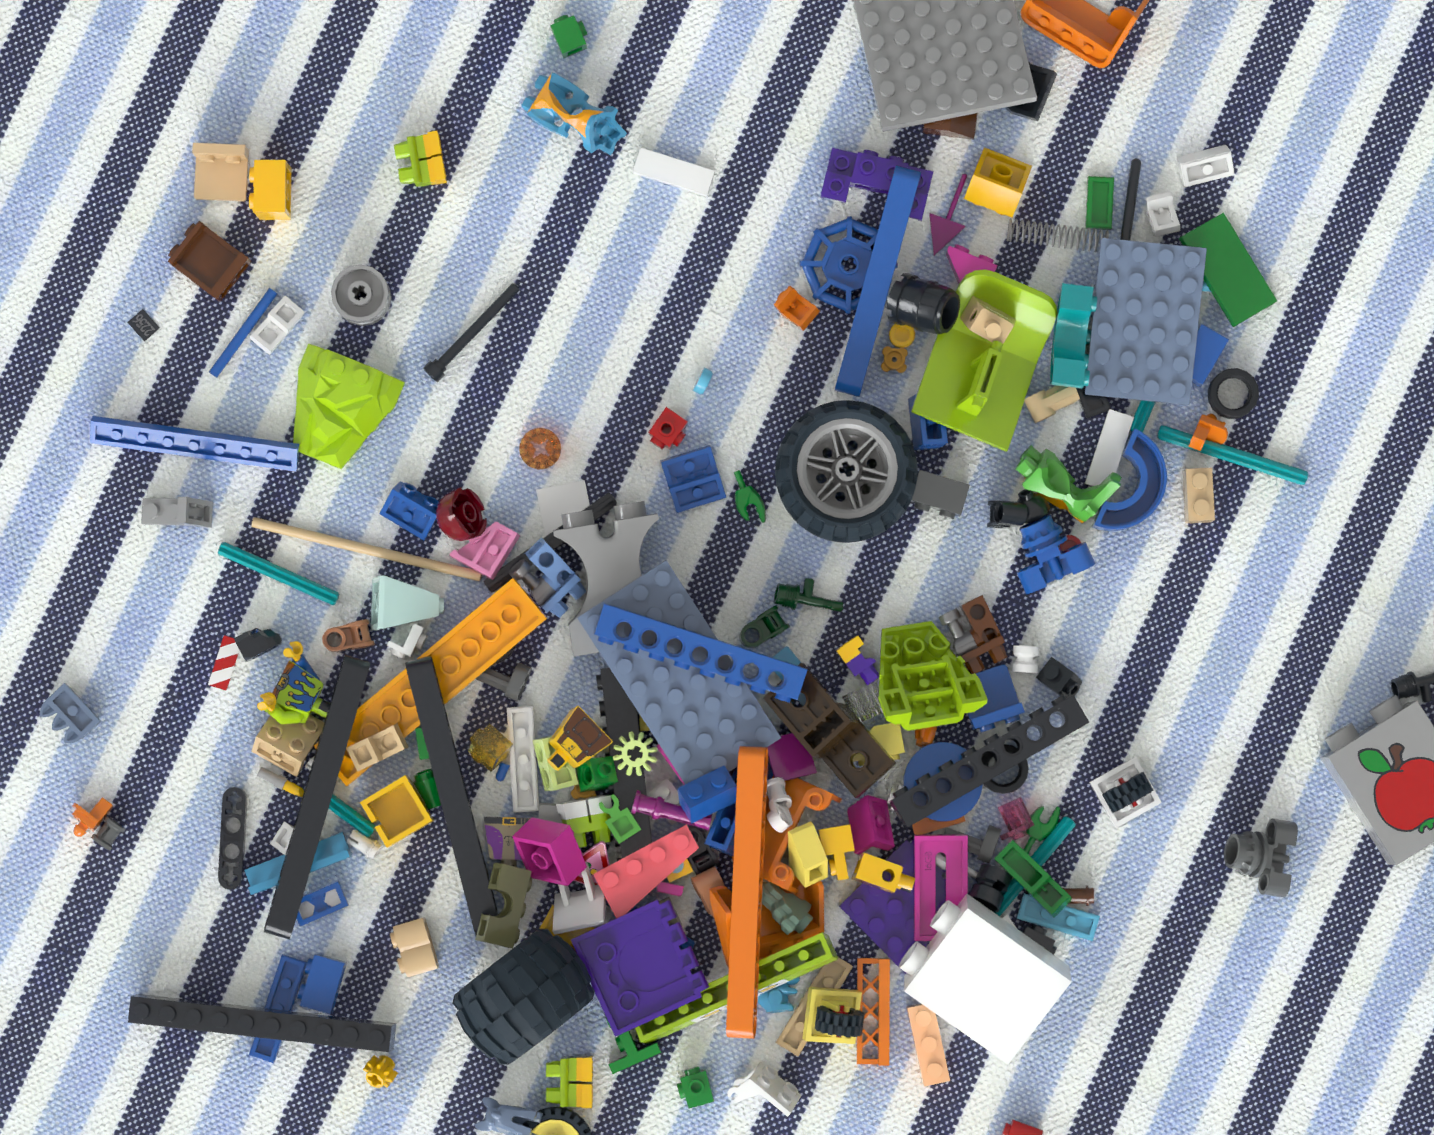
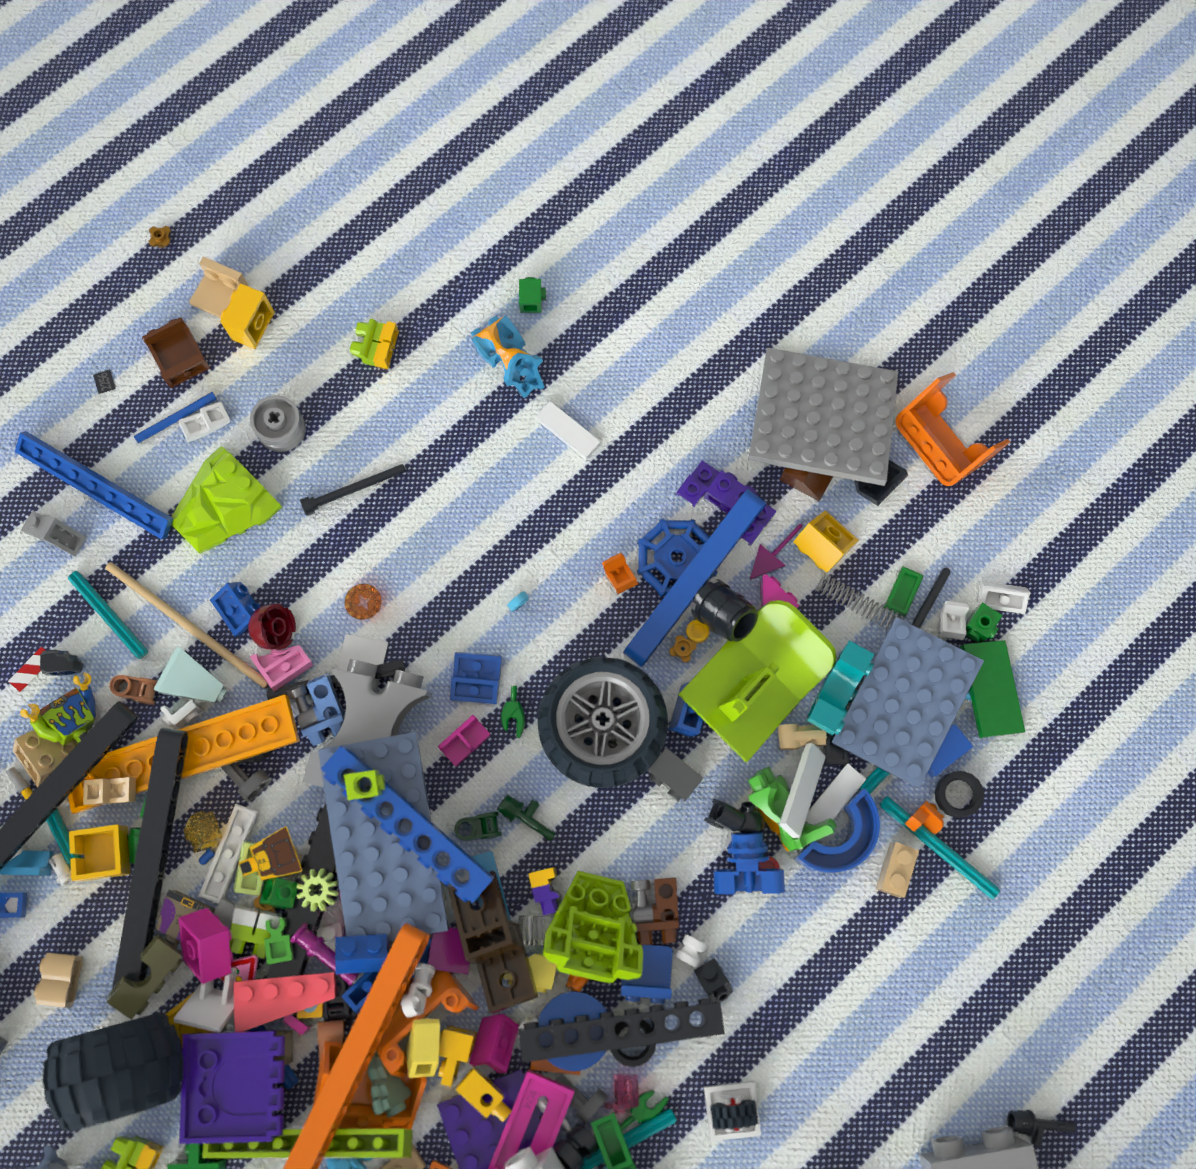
camera: 20 degrees right, 10 degrees down
(130, 136) = (162, 241): none -> pearl gold plate
(641, 642) = (353, 784): none -> lime brick
(668, 430) = (472, 628): red brick -> none
(711, 548) = (464, 740): none -> dark pink panel
(988, 322) = (773, 645): tan torso -> none
(1074, 455) = (802, 790): none -> white tile
(1193, 205) = (982, 623): none -> green brick

